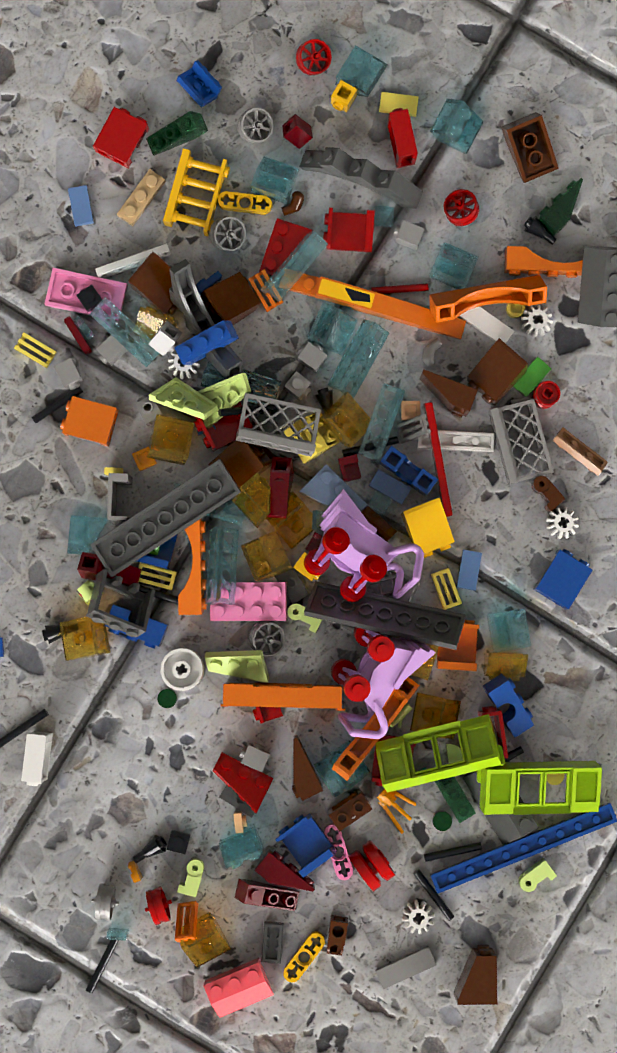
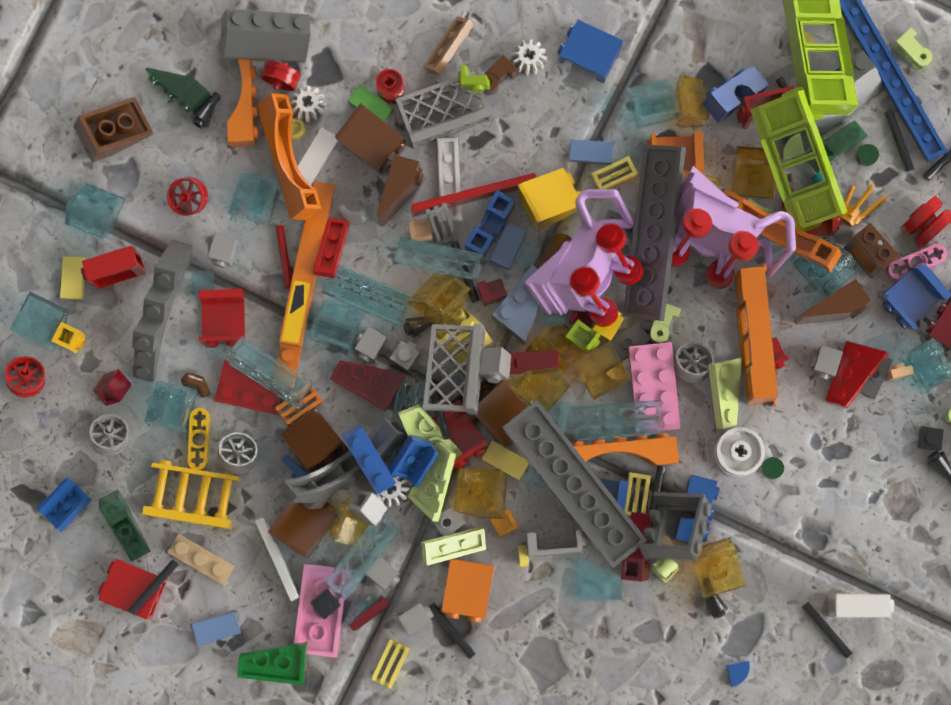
camera: 90 degrees left, 5 degrees down
(44, 255) = (275, 664): none -> green wing
(119, 153) = (151, 589): none -> black bar
(127, 411) = (453, 545): none -> yellowish green plate
(198, 462) = (505, 460): none -> light yellow tile
(203, 383) = (414, 460): none -> blue bracket
(278, 460) = (495, 364): none -> light grey brick
(279, 352) = (369, 382): none -> dark red wing
(299, 543) = (583, 337): none -> lime bracket
(401, 329) = (331, 248): none -> red plate
(539, 469) = (473, 83): none -> lime bracket
(564, 297) = (280, 76): none -> red wheel

